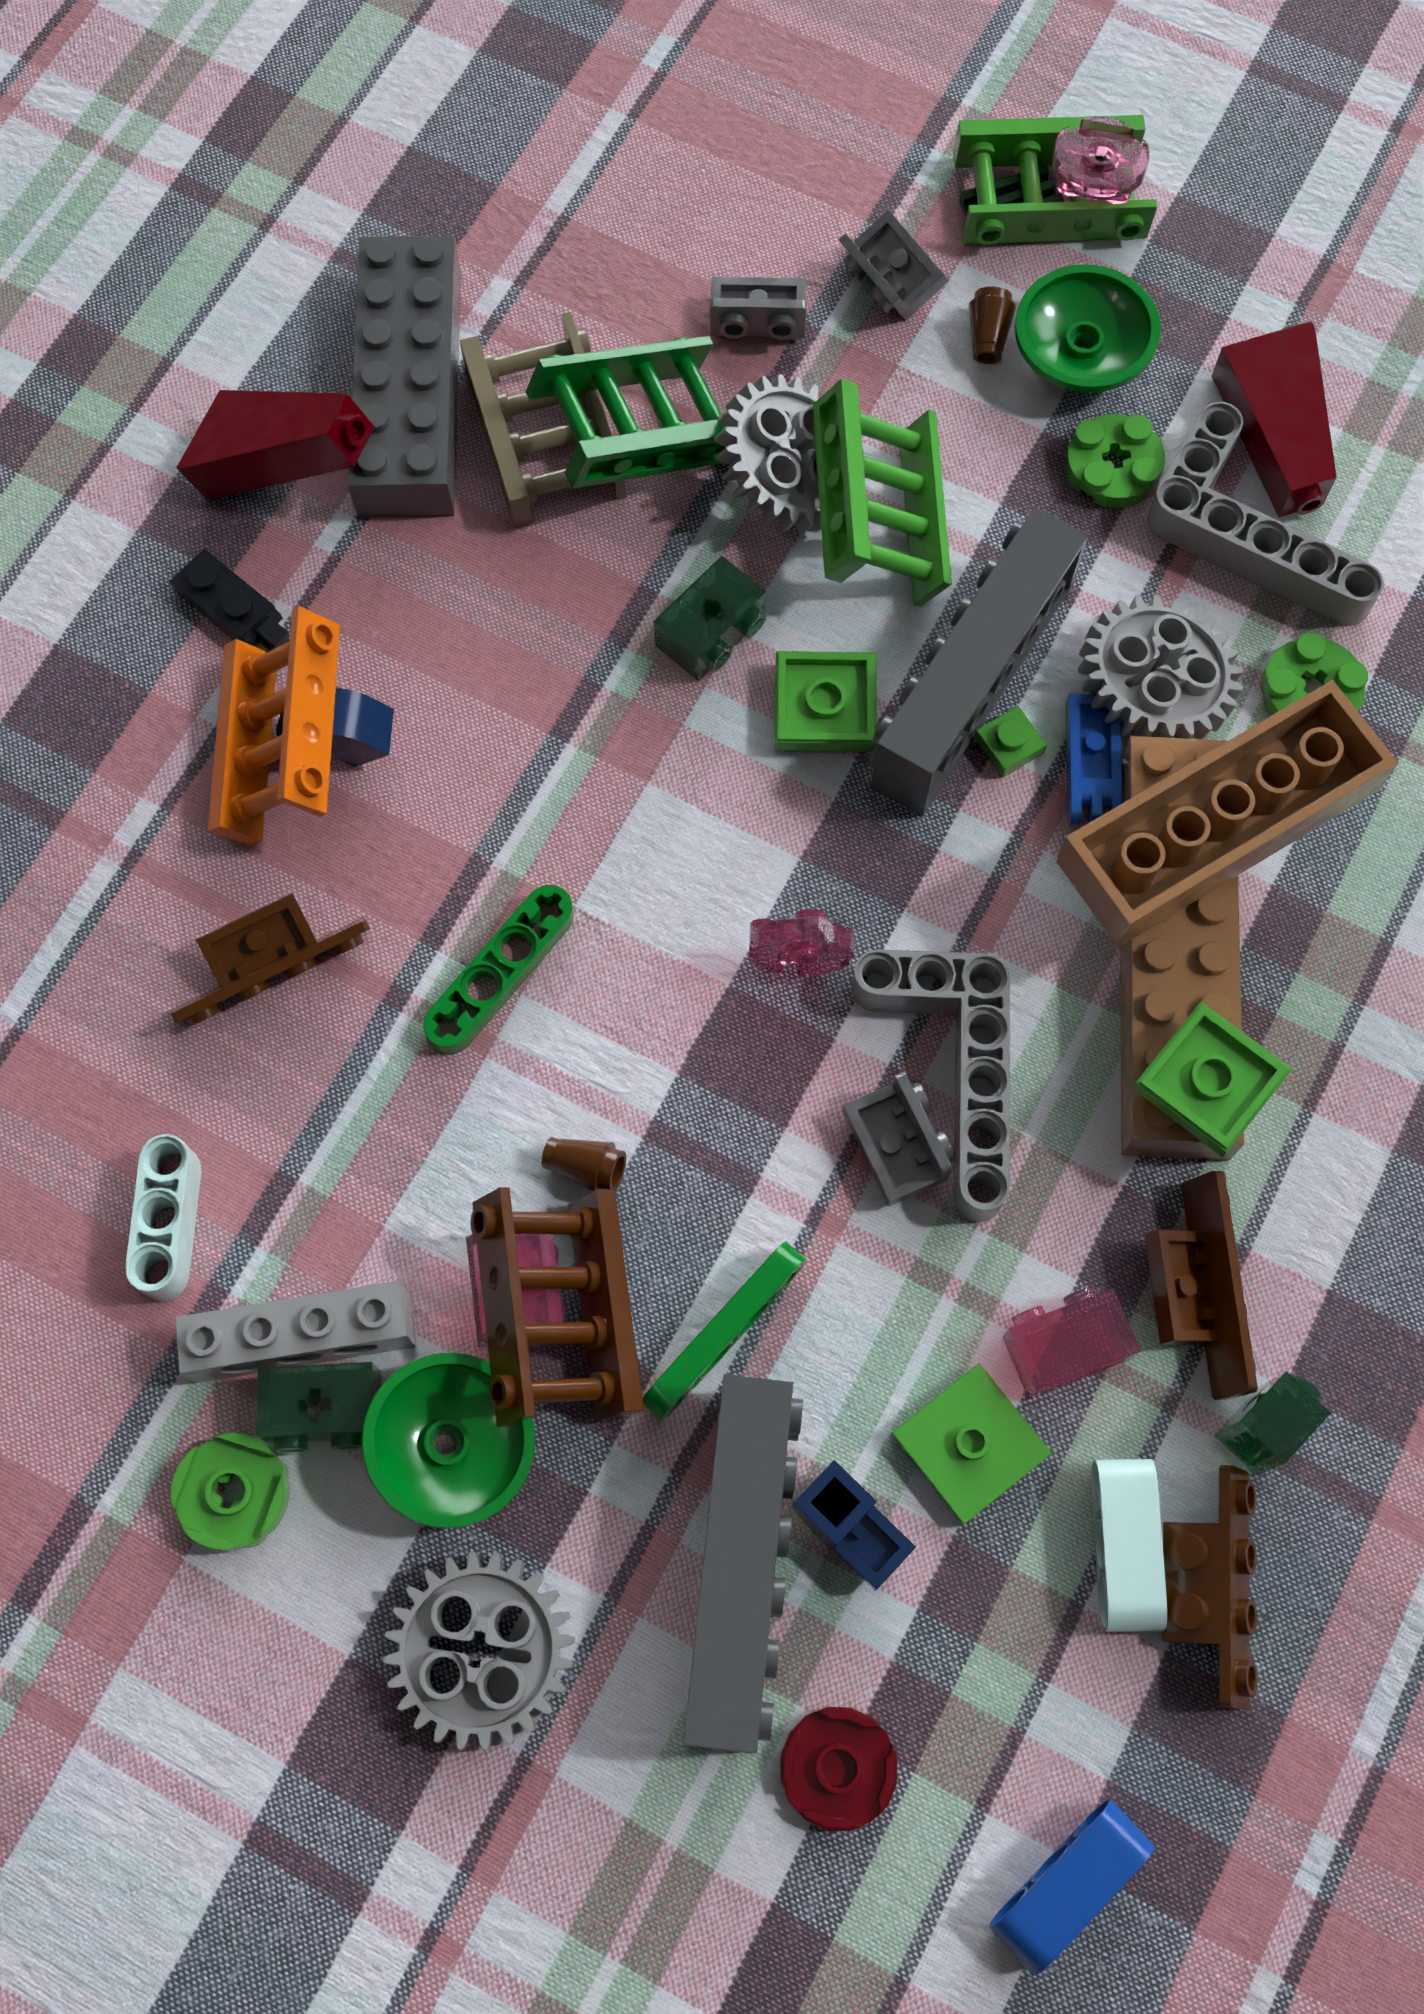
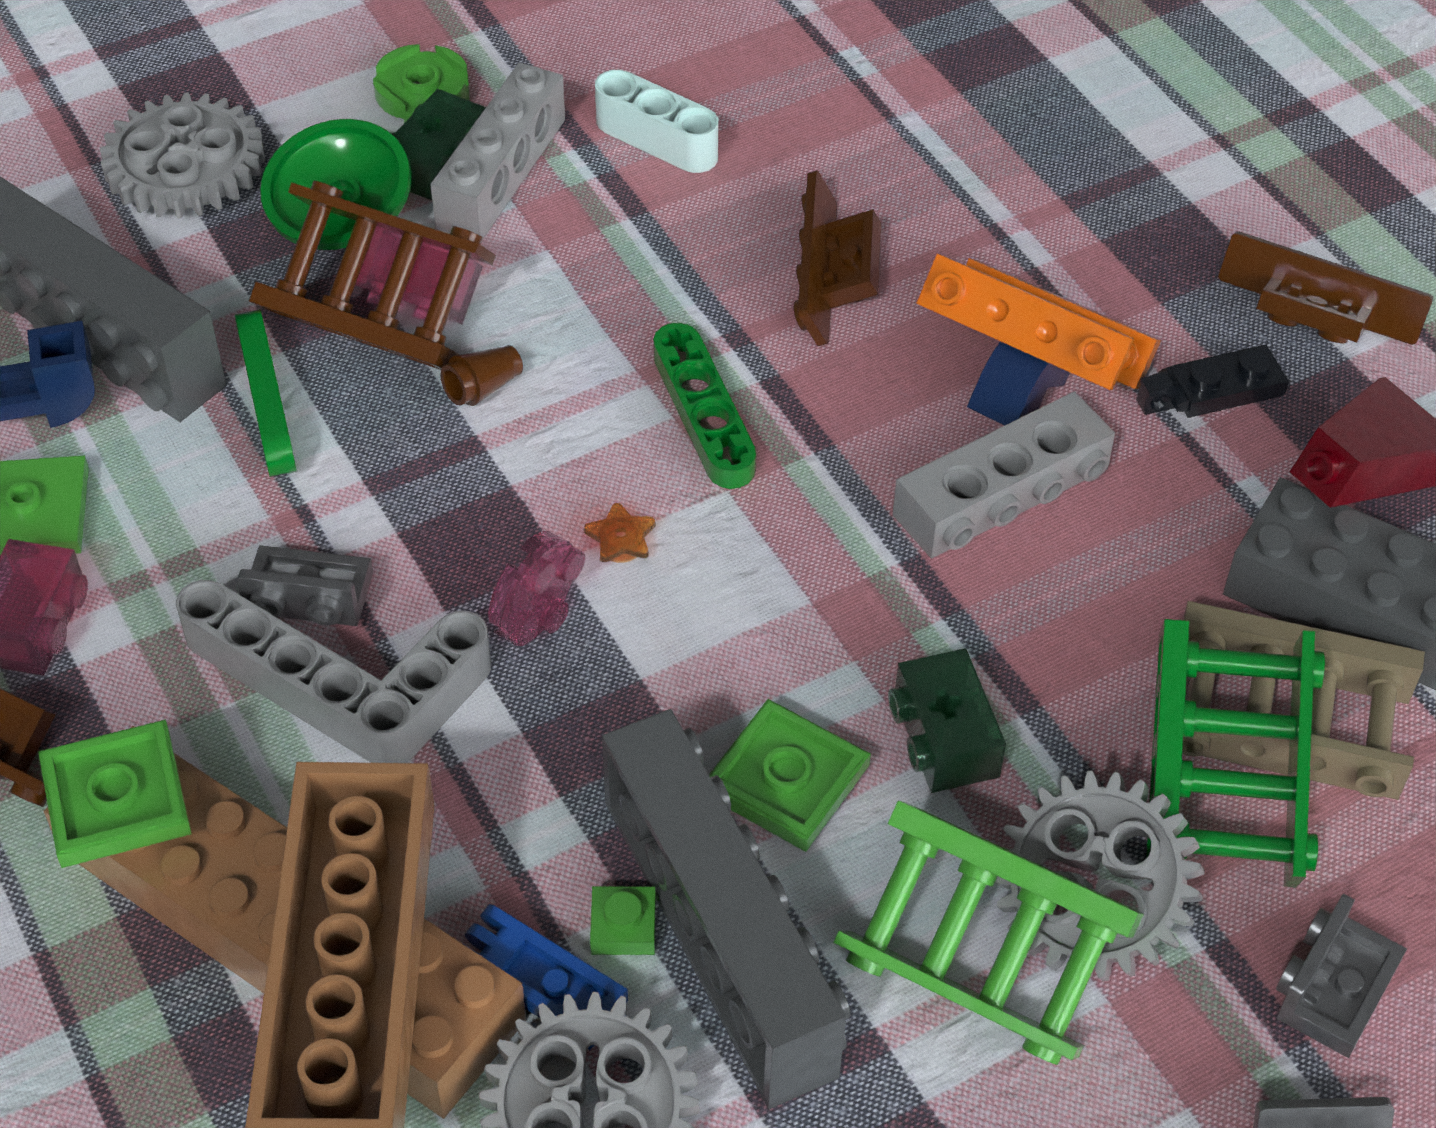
camera: 120 degrees right, 20 degrees down
(89, 563) = (1323, 293): none -> reddish brown bracket
(502, 738) = (1003, 474): none -> light grey brick
(682, 959) = (621, 548): none -> clear orange plate

